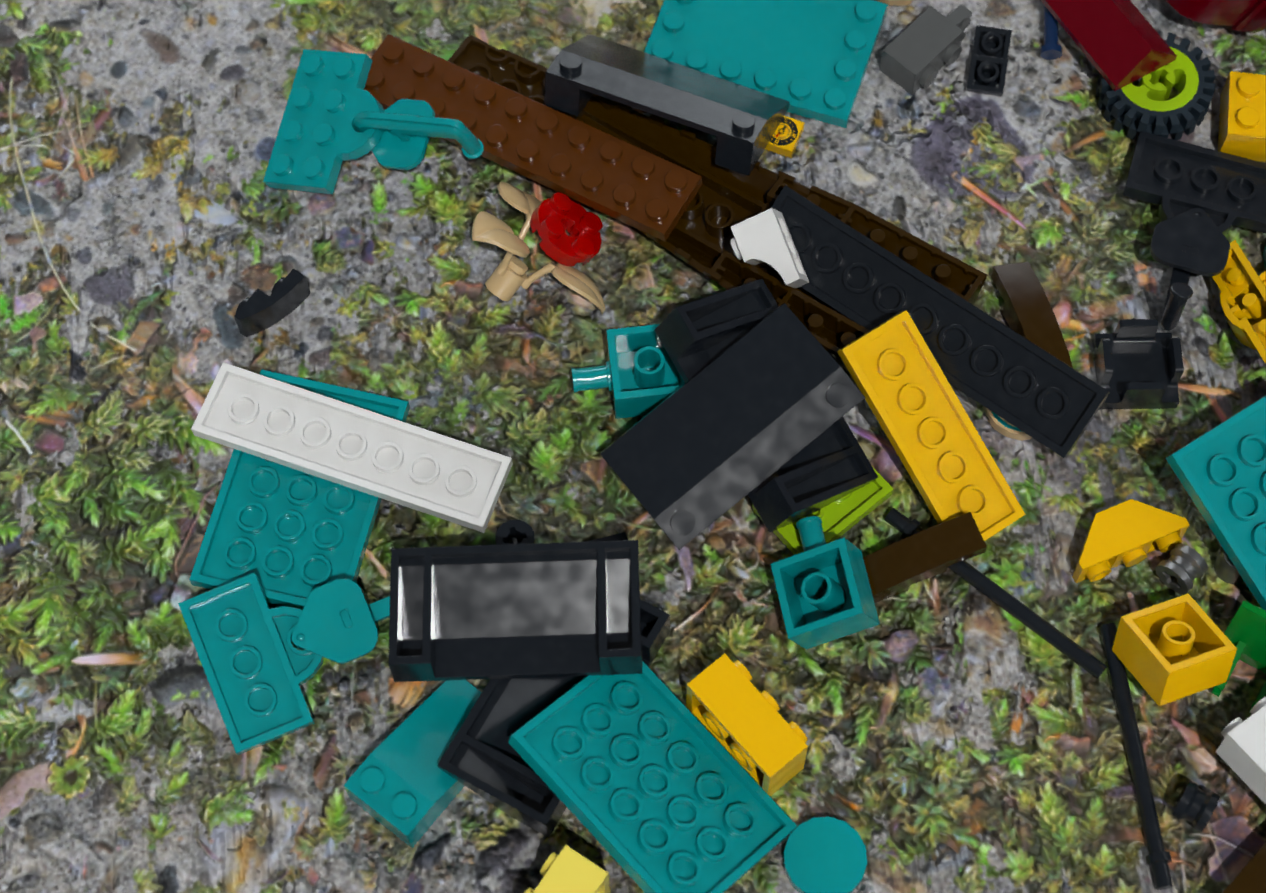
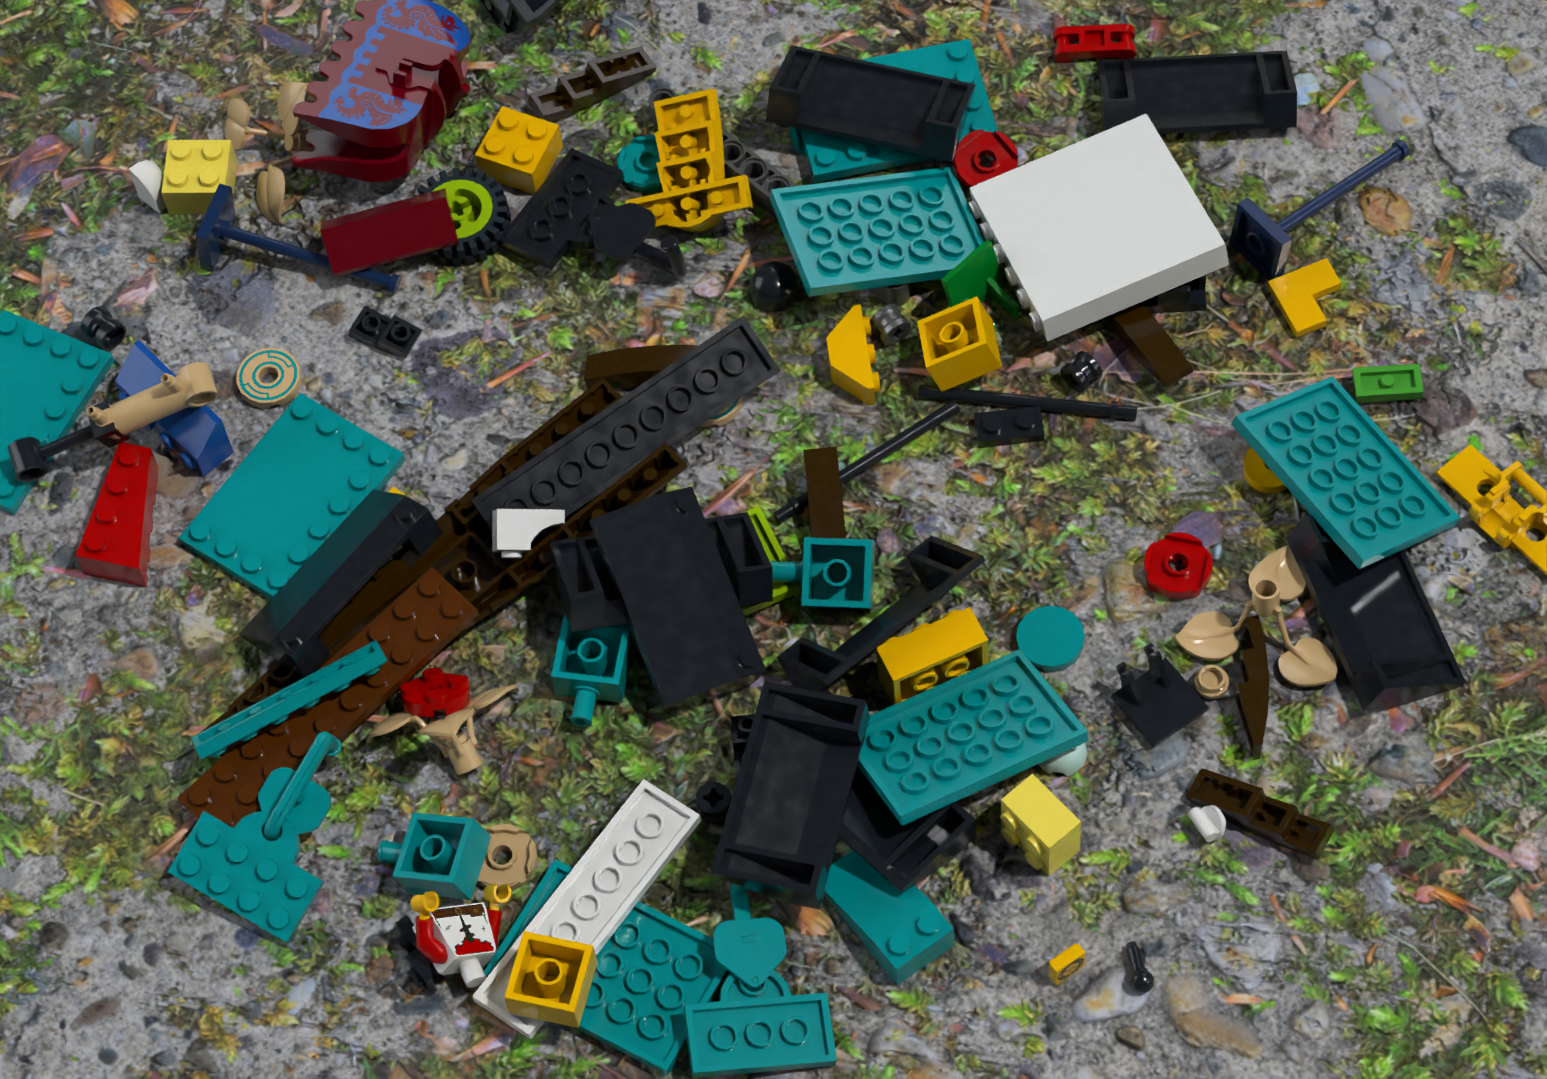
camera: 70 degrees left, 5 degrees down
(239, 426) = (551, 979): none -> yellow brick
(291, 332) = (460, 935): none -> torso
(377, 287) = (438, 855): none -> teal brick
(411, 373) = (523, 861): none -> tan tile
(506, 90) = (299, 694): none -> teal plate
(695, 608) = (938, 567): none -> black slope
(925, 48) = (357, 375): dark grey hinge -> none
(929, 426) = (722, 455): yellow plate -> none
(1094, 741) = (1009, 427): none -> black plate
(1138, 366) = (707, 301): black panel -> none
(1184, 424) = (773, 286): none -> black hair

